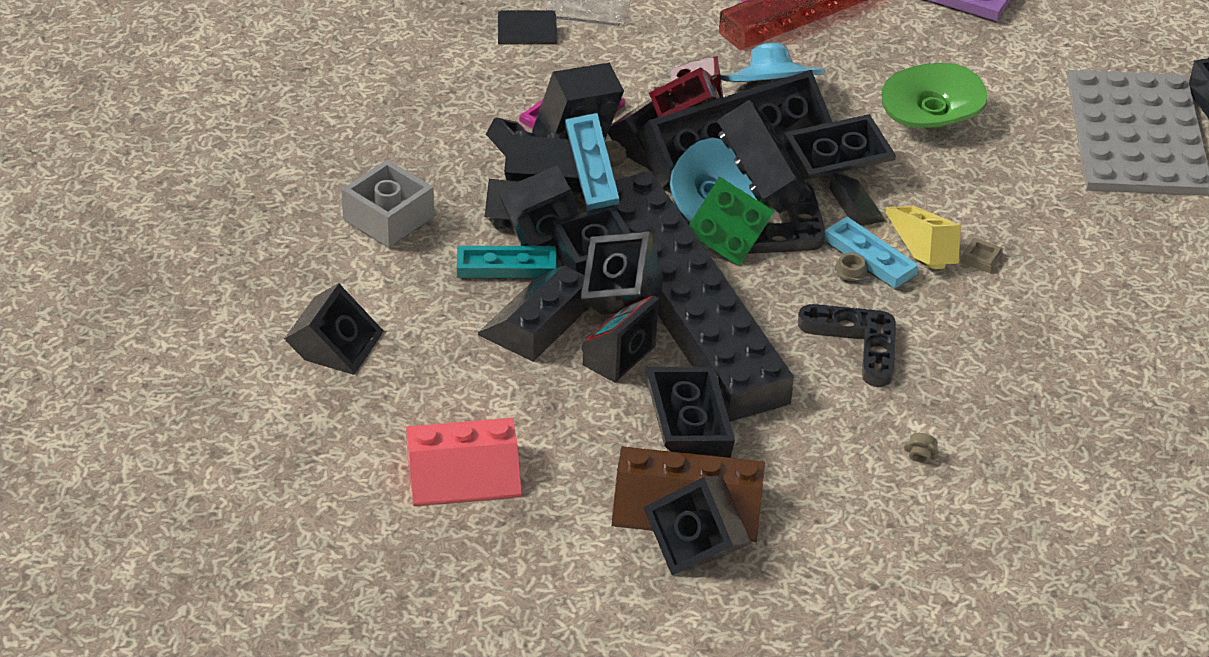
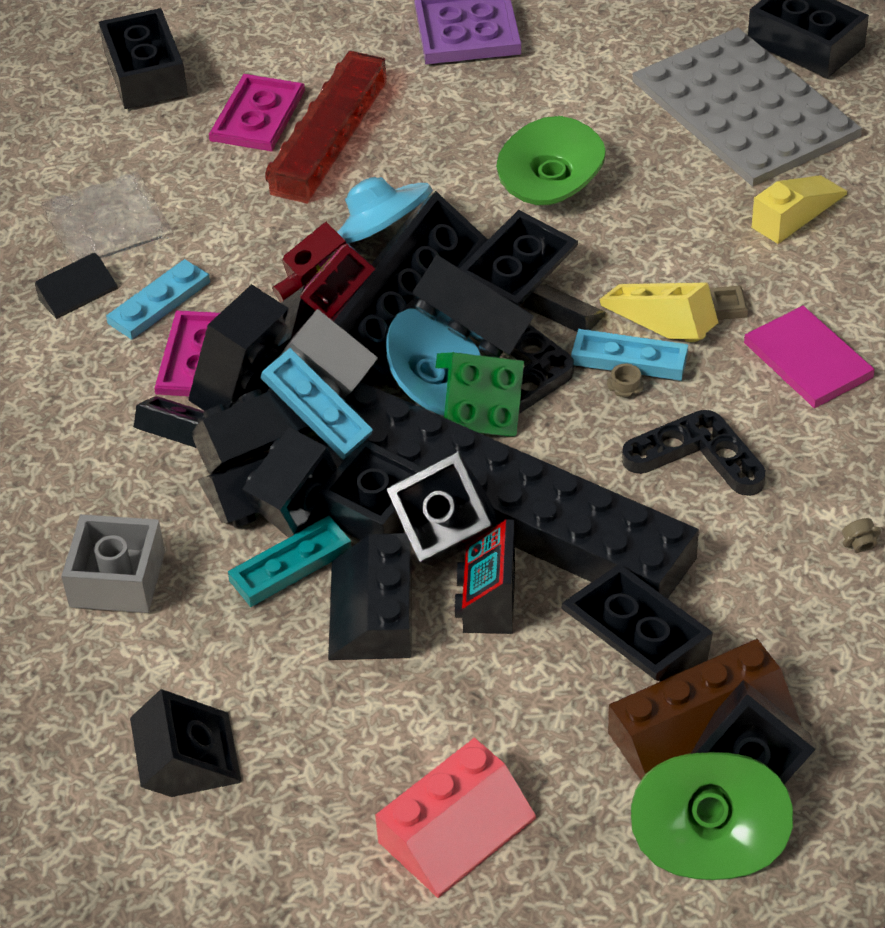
camera: 30 degrees left, 5 degrees up
(545, 63) = (158, 299): none -> medium azure plate
(621, 530) = (711, 815): none -> bright green hat
(630, 140) = (331, 353): none -> light grey brick
(1008, 319) = (809, 356): none -> dark pink tile
(1099, 212) = (792, 204): none -> light yellow slope

